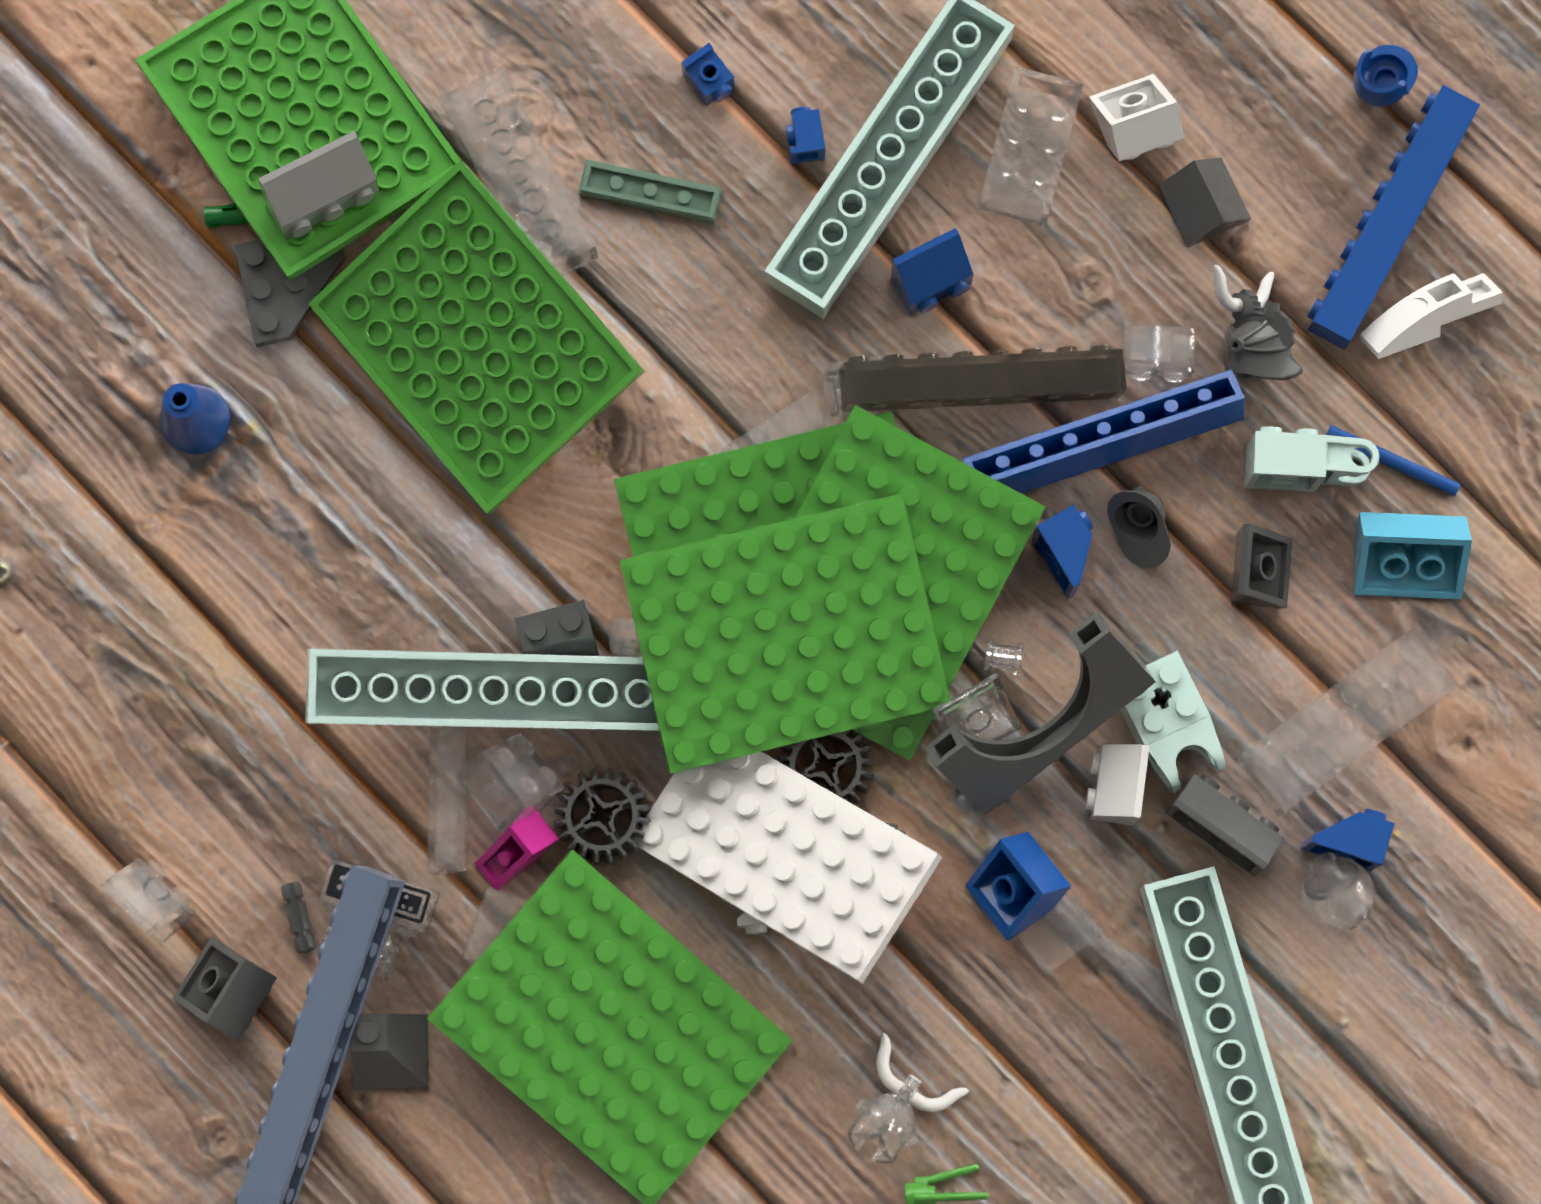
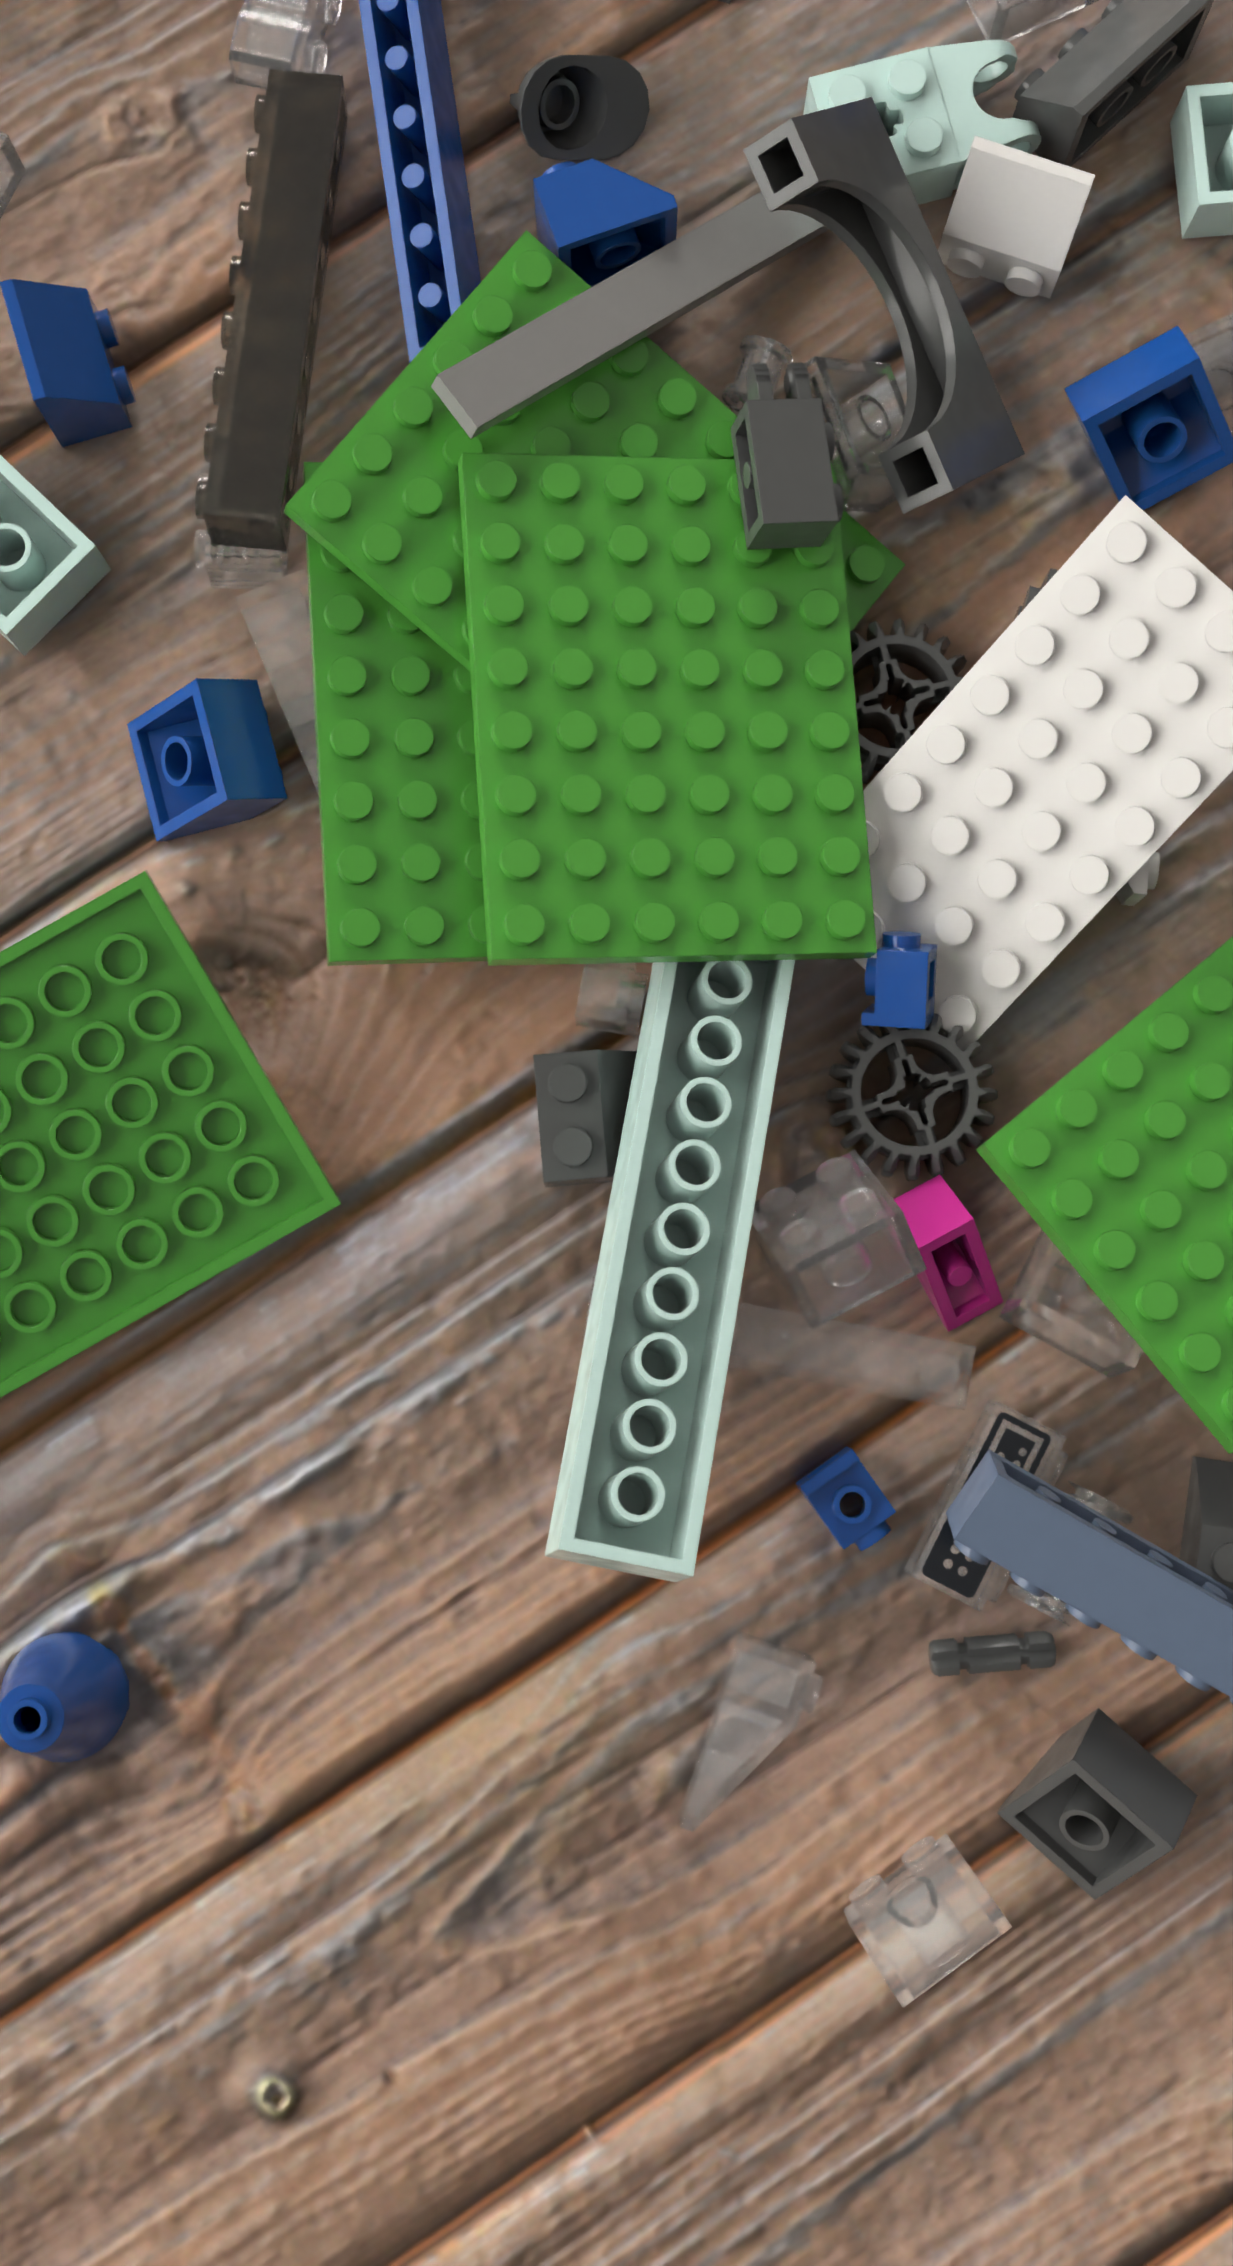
camera: 80 degrees left, 5 degrees up
(248, 789) = (752, 1715): none -> clear slope
(383, 820) = (830, 1483): none -> blue brick
(660, 796) = (901, 982): none -> blue brick
(722, 393) = (206, 758): none -> blue slope
(934, 671) = (785, 463): none -> dark grey hinge
(997, 557) = (619, 312): none -> light grey tile

